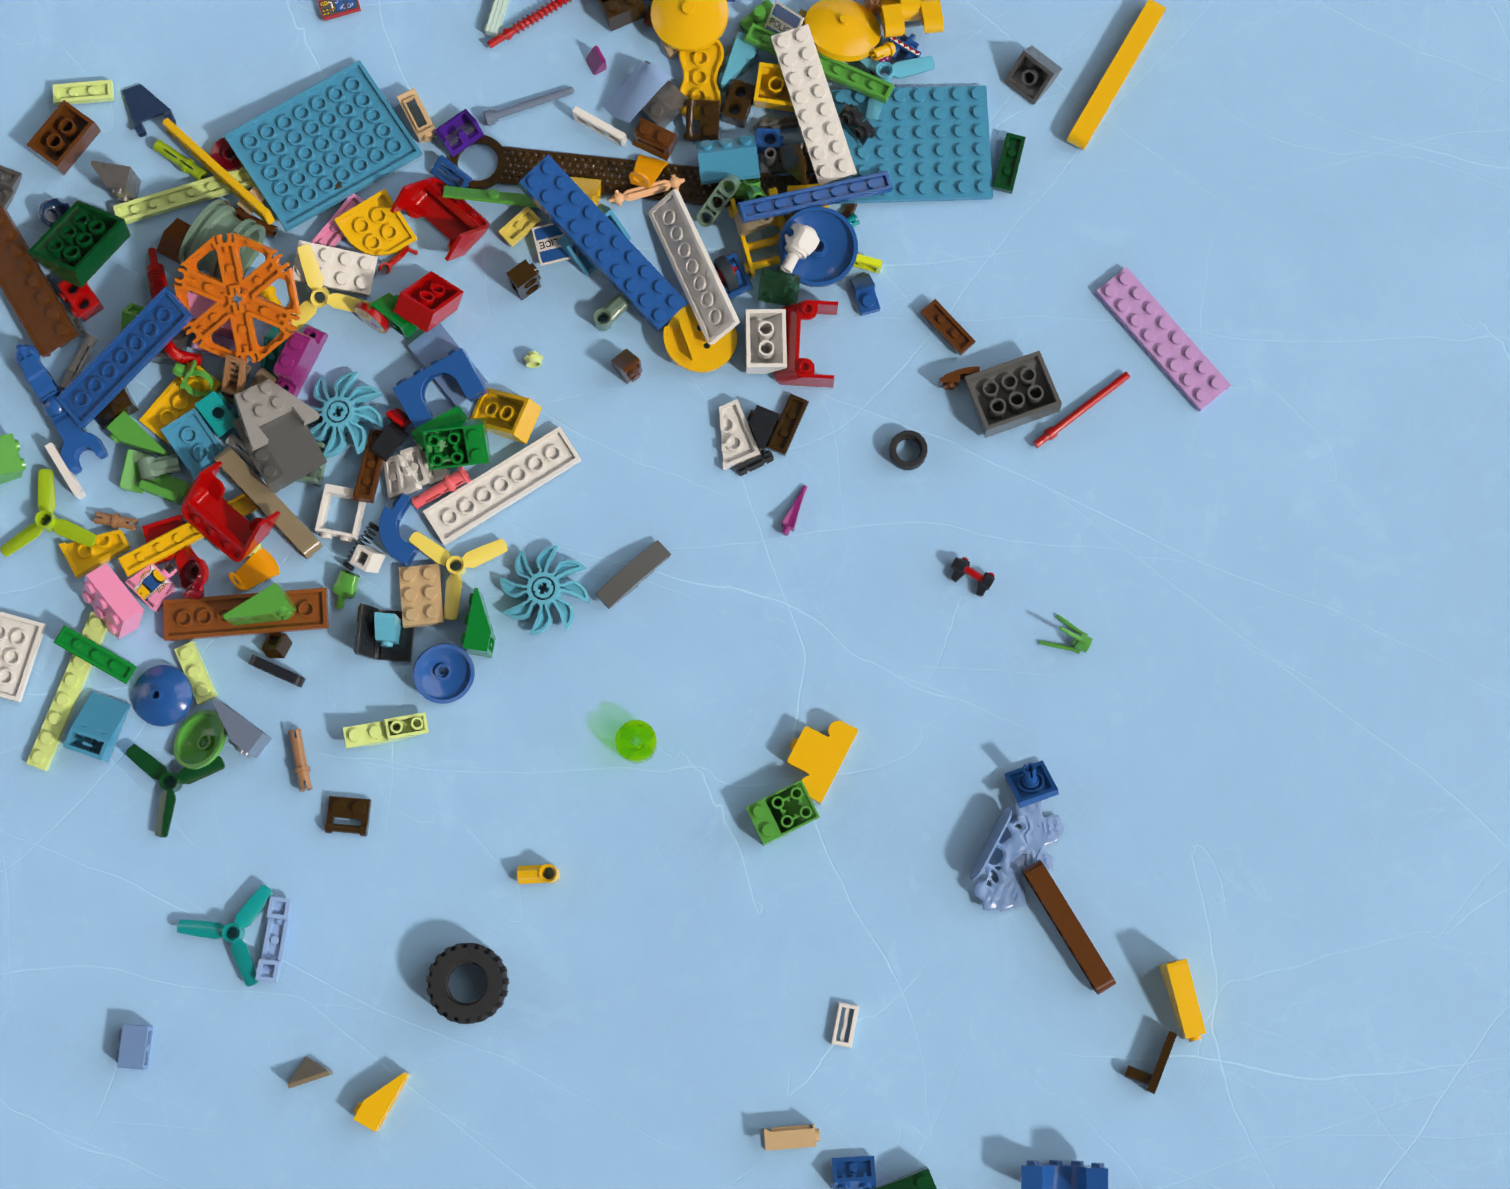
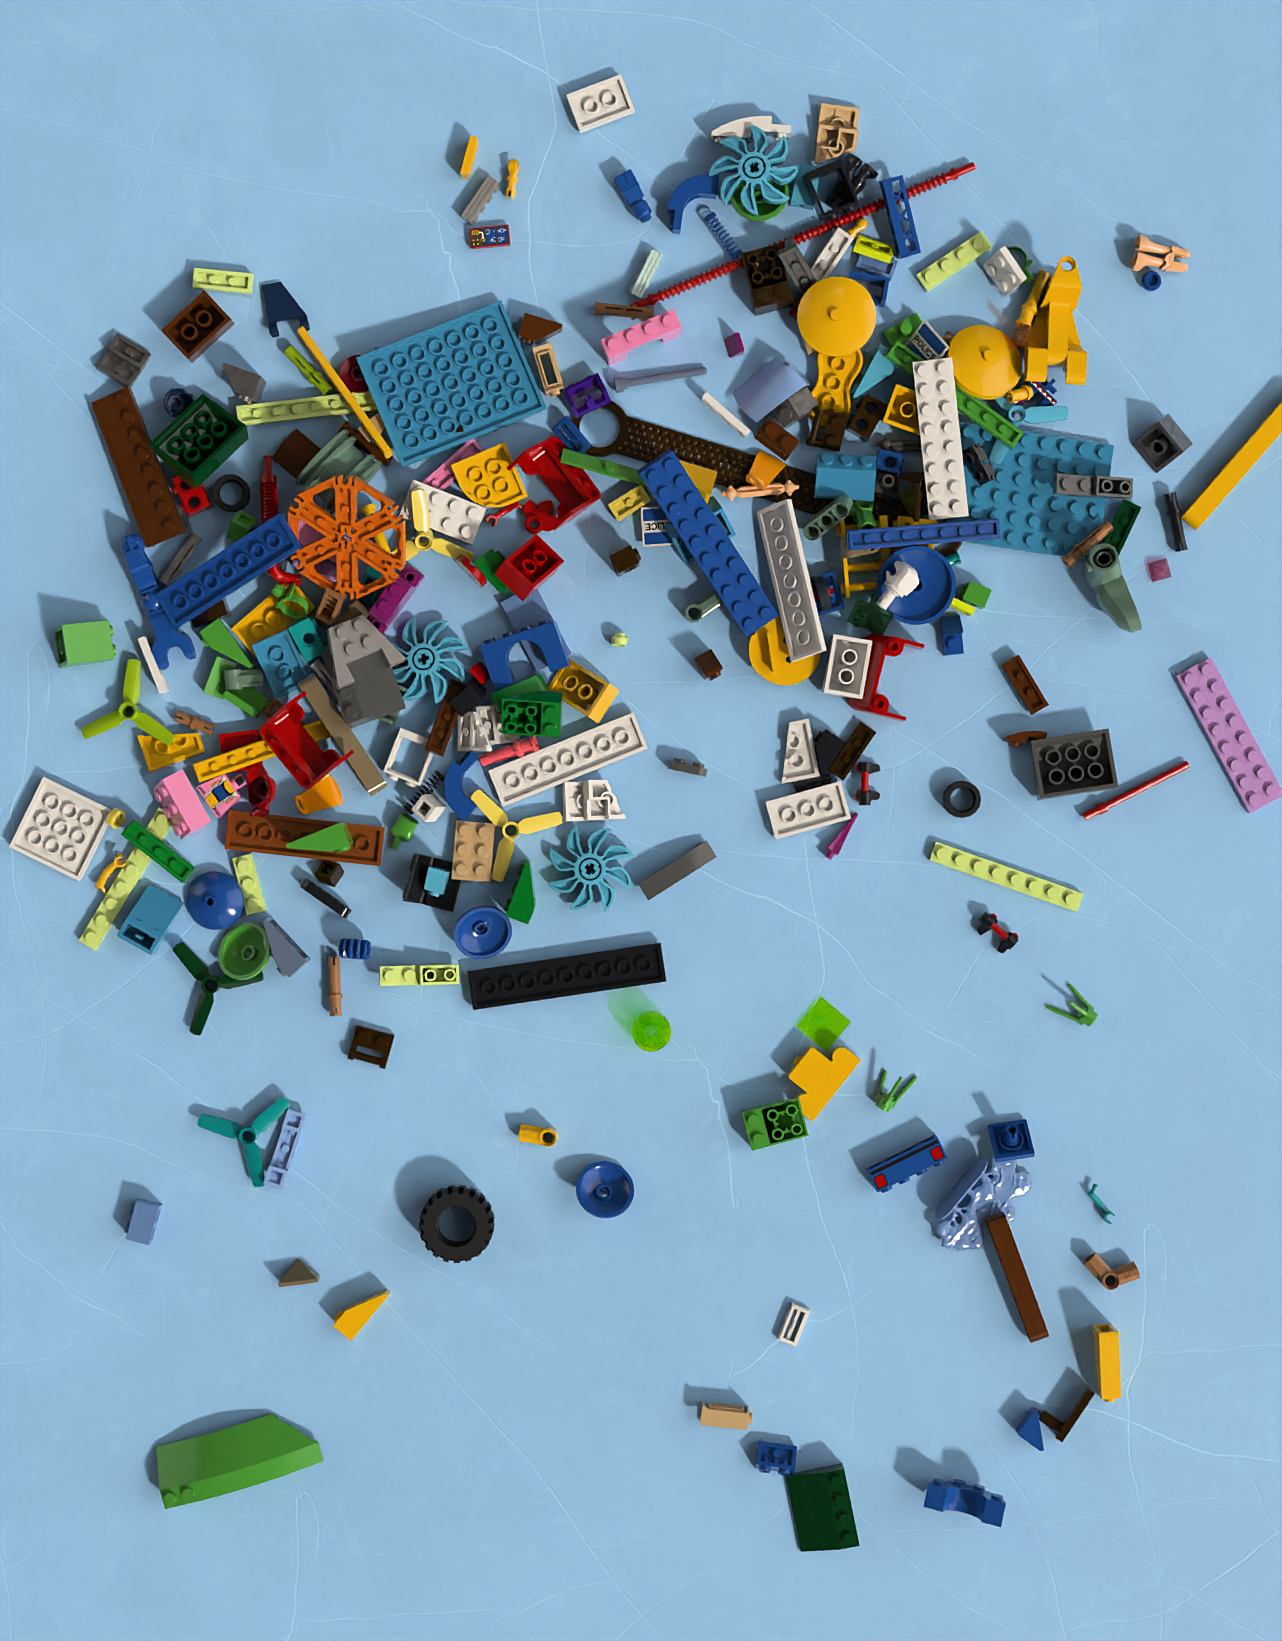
camera: 10 degrees right, 10 degrees up
(47, 630) = (115, 818): none -> light yellow tile
(47, 688) = (108, 870): none -> yellow piece
(113, 277) = (231, 478): none -> black tyre
(314, 715) = (354, 949): none -> blue gear
(400, 80) = (537, 329): none -> reddish brown slope
(433, 254) = (541, 514): none -> red plate
(480, 73) = (663, 327): none -> bright pink arch
(482, 49) = (624, 311): none -> medium nougat pin
(532, 523) = (589, 801): none -> white slope
(538, 703) = (566, 976): none -> black plate
(615, 470) = (679, 765): none -> dark grey plate
(617, 907) = (605, 1178): none -> blue dish
(755, 490) = (808, 810): none -> white plate
(809, 464) = (865, 795): none -> black piece
(814, 703) = (823, 1024): none -> clear neon green piece
(880, 249) = (975, 594): none -> bright green brick
(894, 768) = (886, 1100): none -> bright green plant
(928, 829) = (907, 1163): none -> blue brick
(969, 519) = (1006, 876): none -> yellowish green plate
(973, 125) = (1092, 486): none -> dark grey slope
(974, 185) = (1081, 549): none -> medium nougat pin
(1010, 213) = (1109, 587): none -> sand green piece
(1057, 194) = (1159, 570): none -> clear pink slope
(1059, 139) = (1175, 521): none -> black pin
(1119, 1089) = (1030, 1429): none -> blue slope
(1138, 834) = (1099, 1203): none -> teal piece
(1176, 903) = (1121, 1274): none -> medium nougat piece

